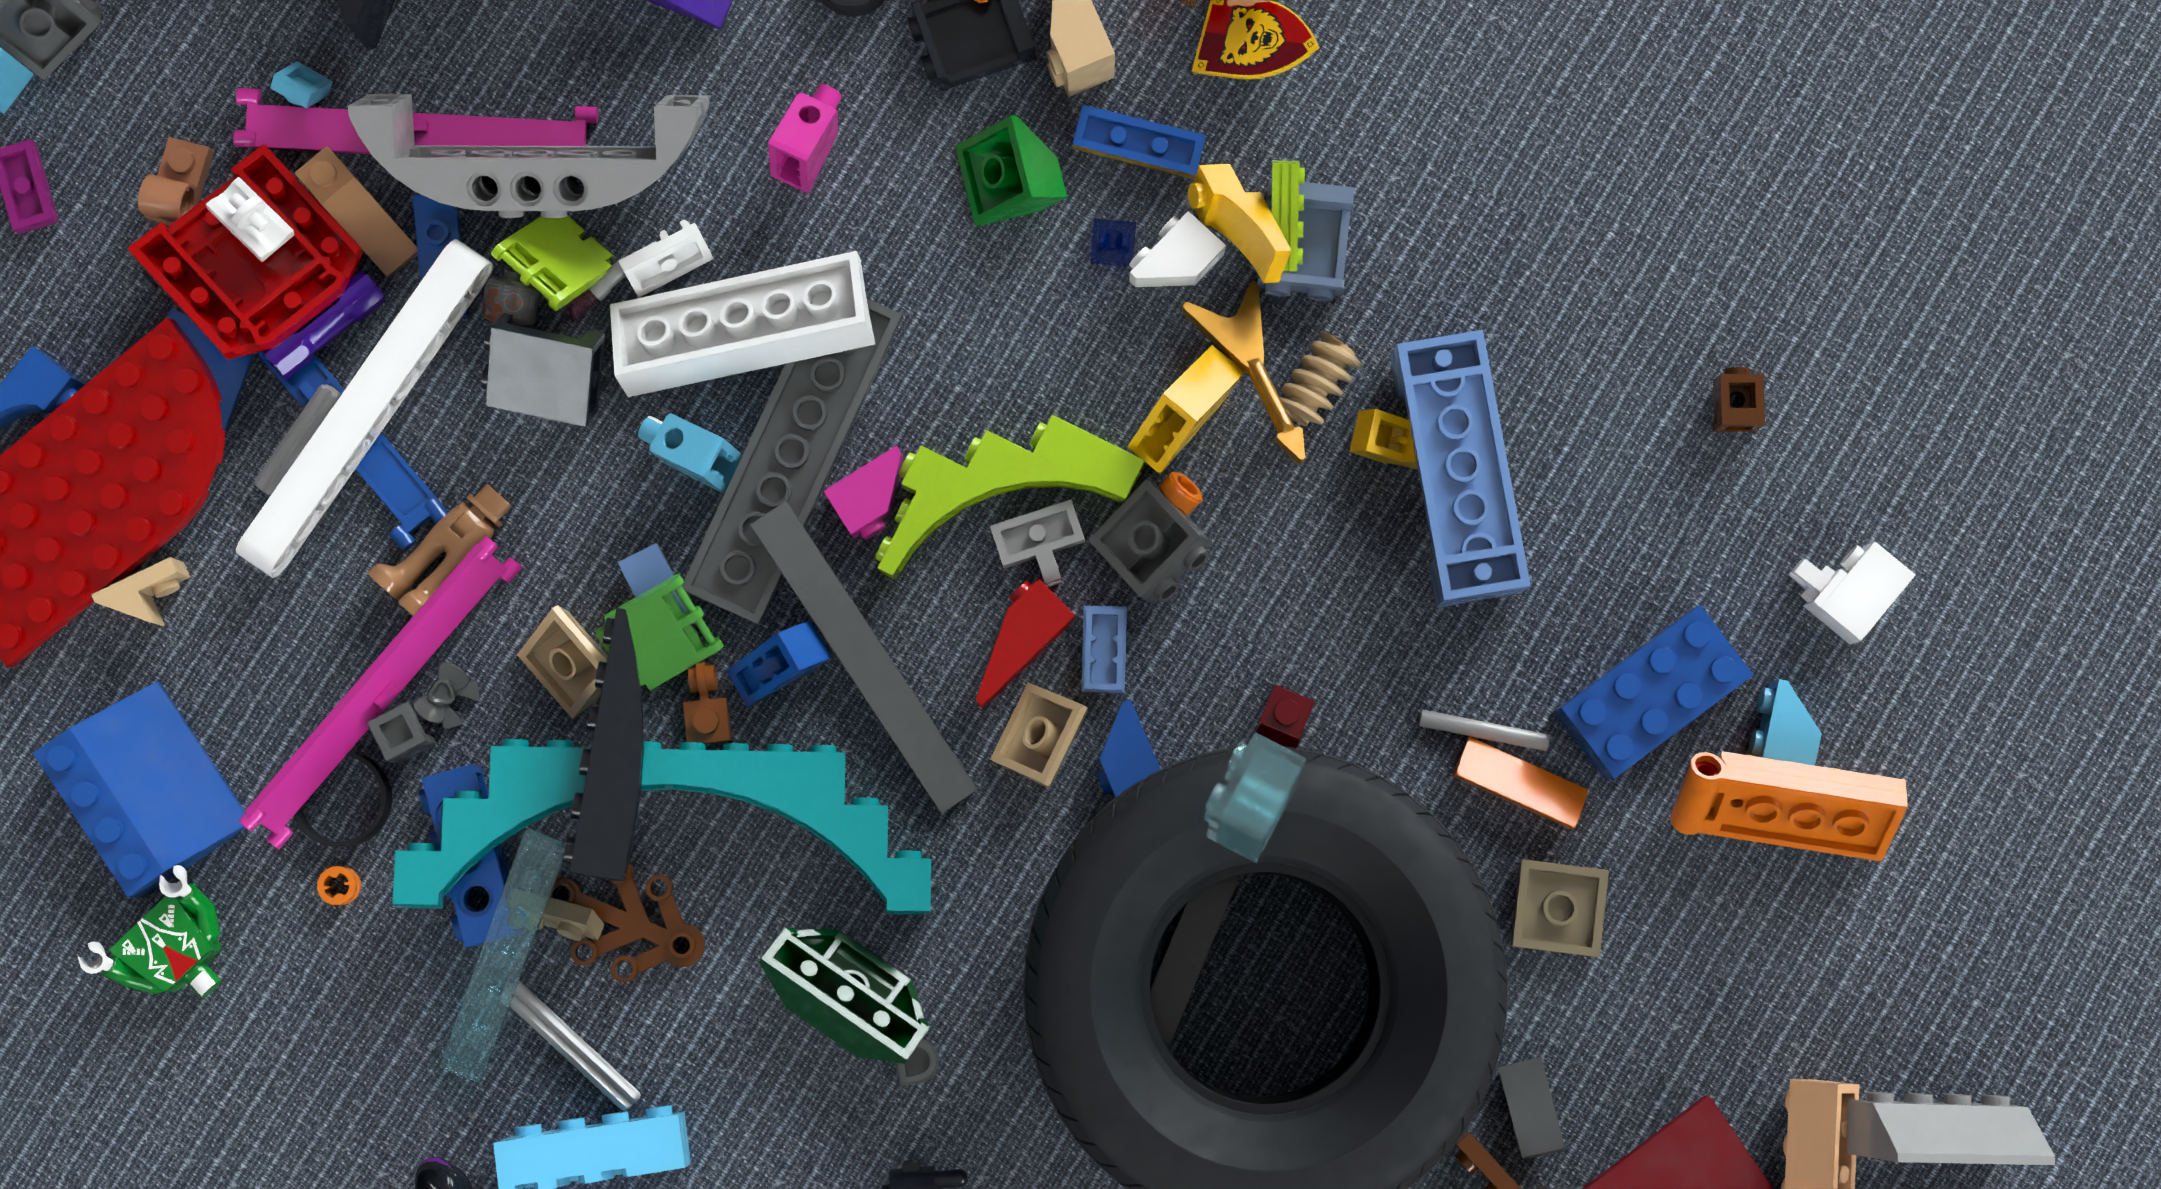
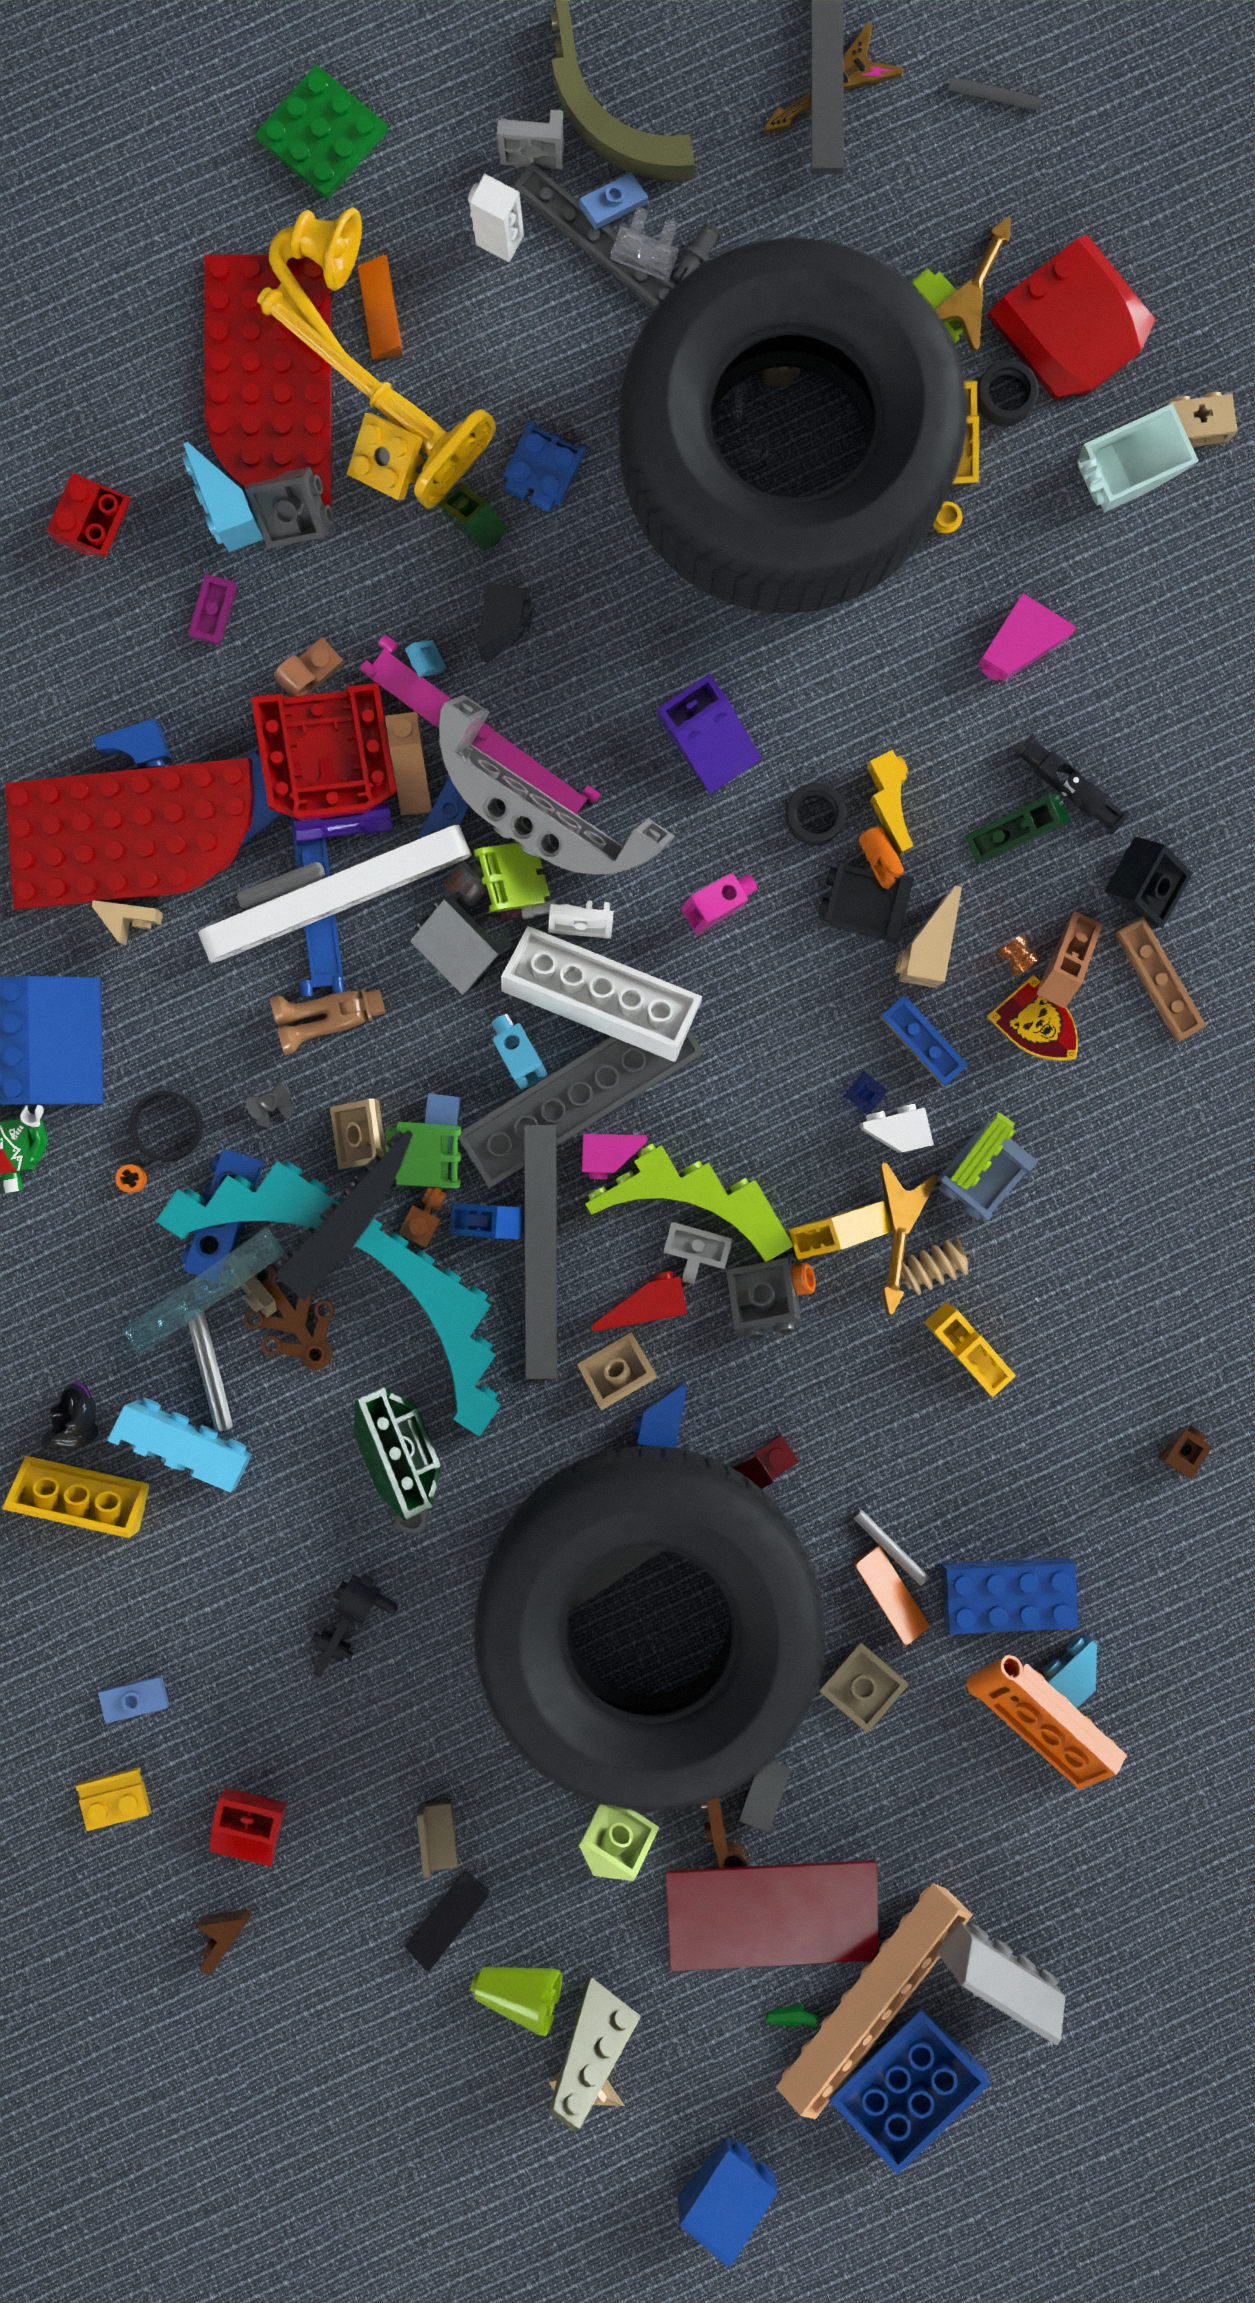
camera: 30 degrees right, 5 degrees up
(250, 219) = (338, 729): white hips -> none
(376, 690) = (230, 1075): dark pink piece -> none
(400, 734) = (226, 1111): dark grey panel -> none
(1008, 172) = (829, 1007): green slope -> none
(1104, 649) = (691, 1344): medium blue plate -> none
(1240, 218) = (954, 1134): yellow slope -> none
(1256, 795) = (718, 1526): clear light blue brick -> none
(1461, 468) = (985, 1382): medium blue plate -> none
(1856, 597) = (1176, 1619): white hinge -> none

